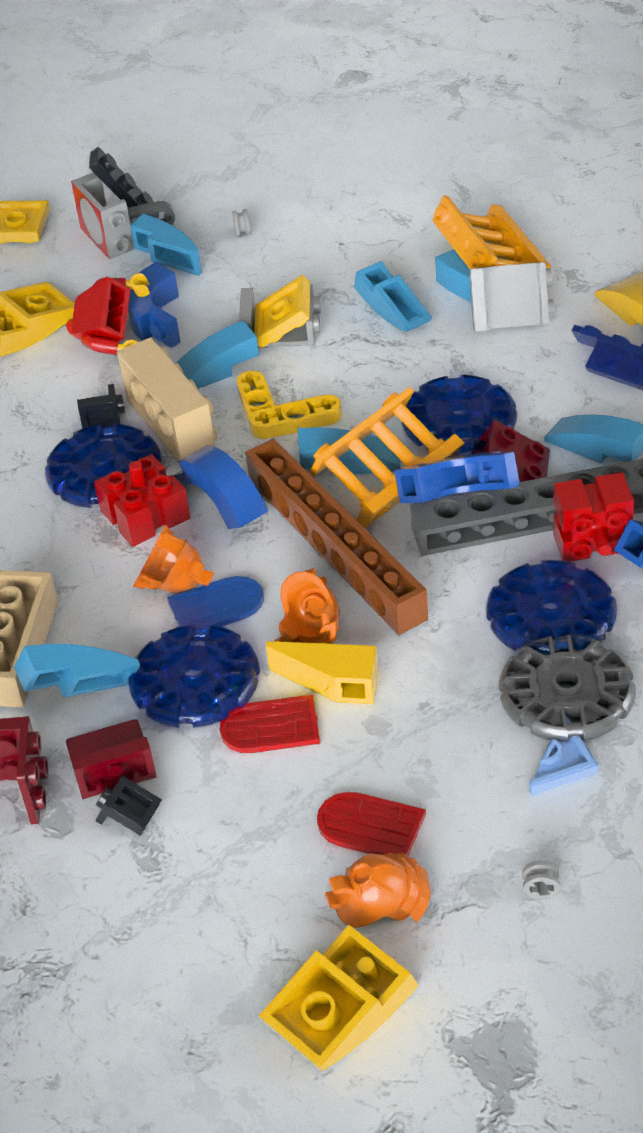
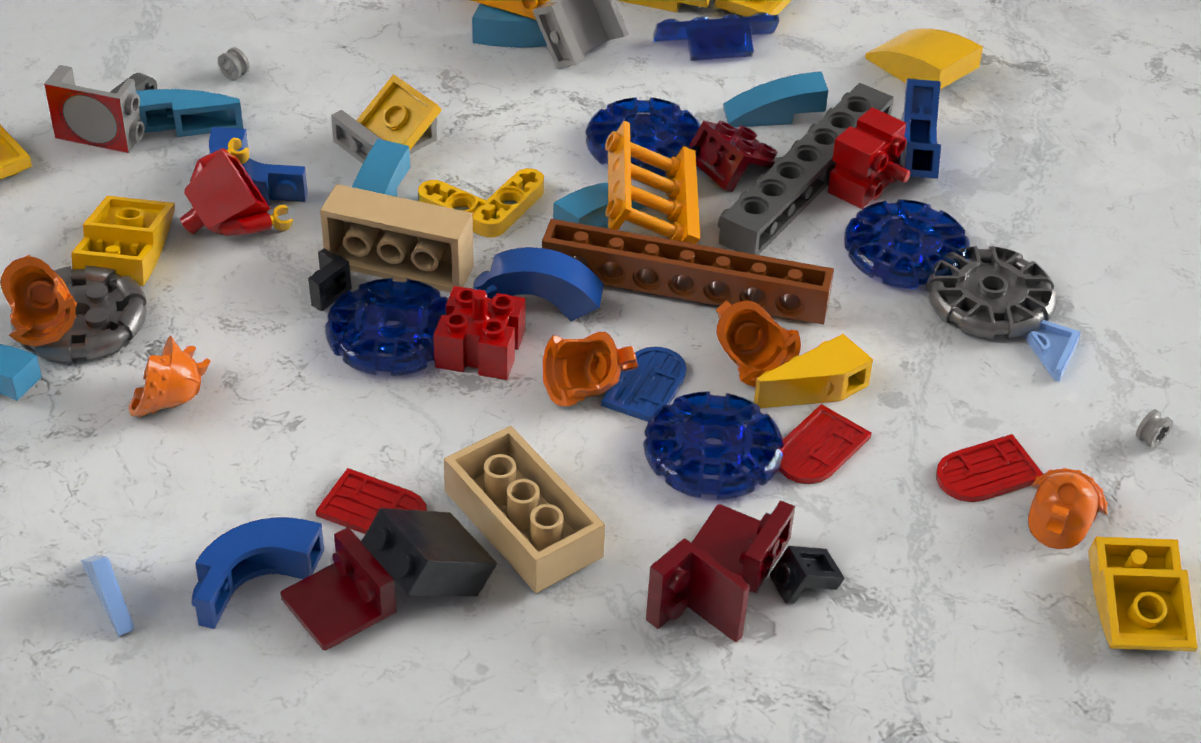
camera: 50 degrees left, 0 degrees up
(73, 668) = (636, 490): dark azure slope -> none
(116, 180) = (87, 68): black plate -> none
(390, 297) = (464, 70): dark azure slope -> none
(456, 476) = (726, 178): blue arch -> none

